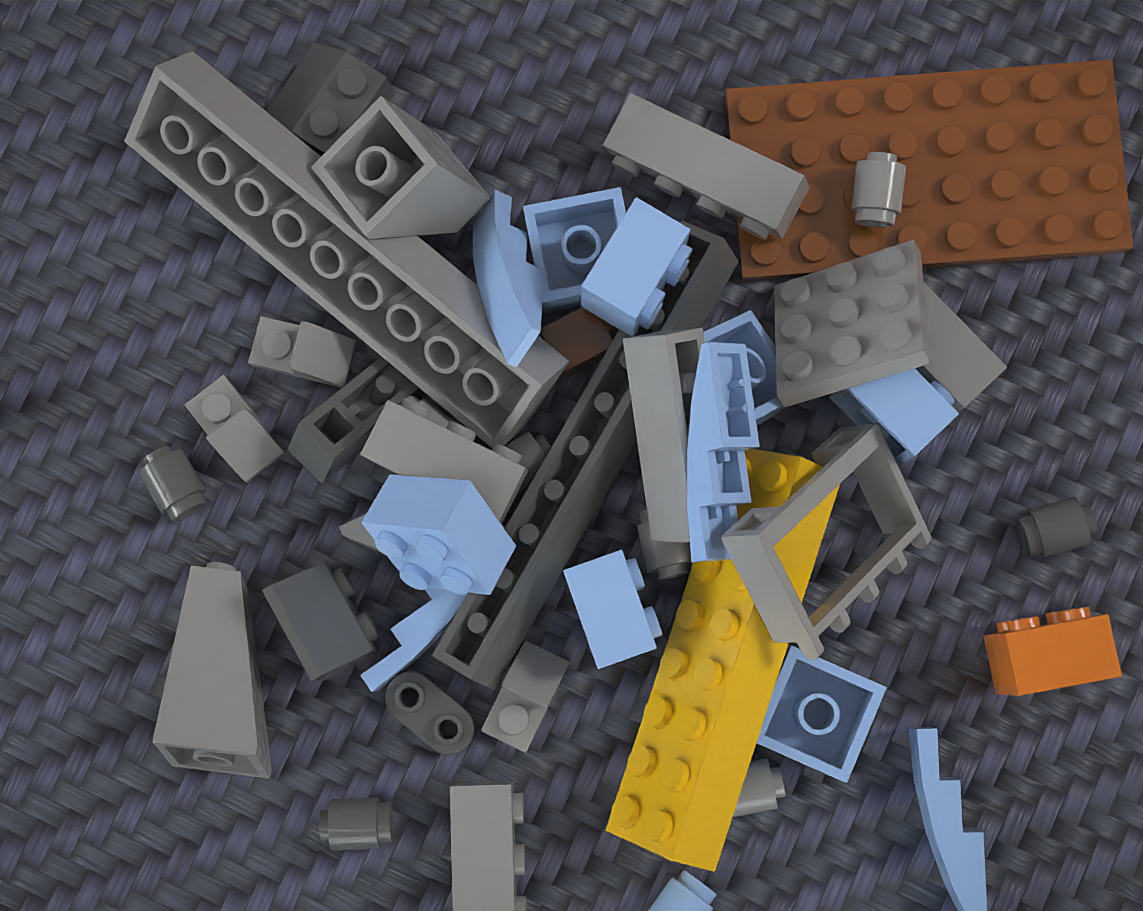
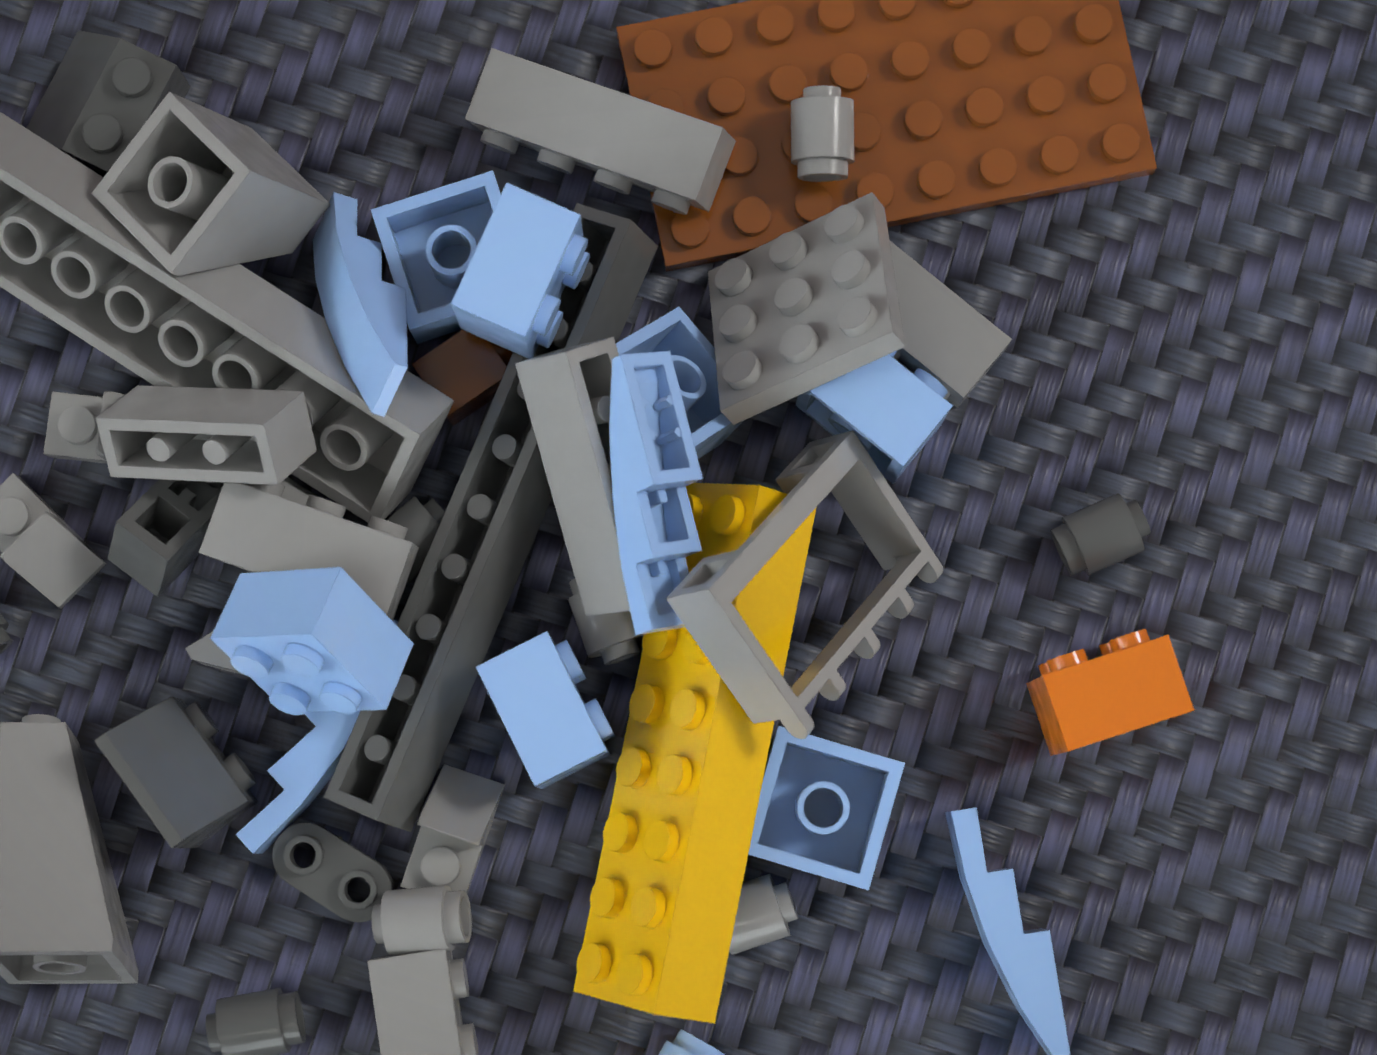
camera: 15 degrees left, 0 degrees up
(377, 364) = (207, 434): none -> light grey brick
(495, 759) = (422, 919): none -> light grey brick

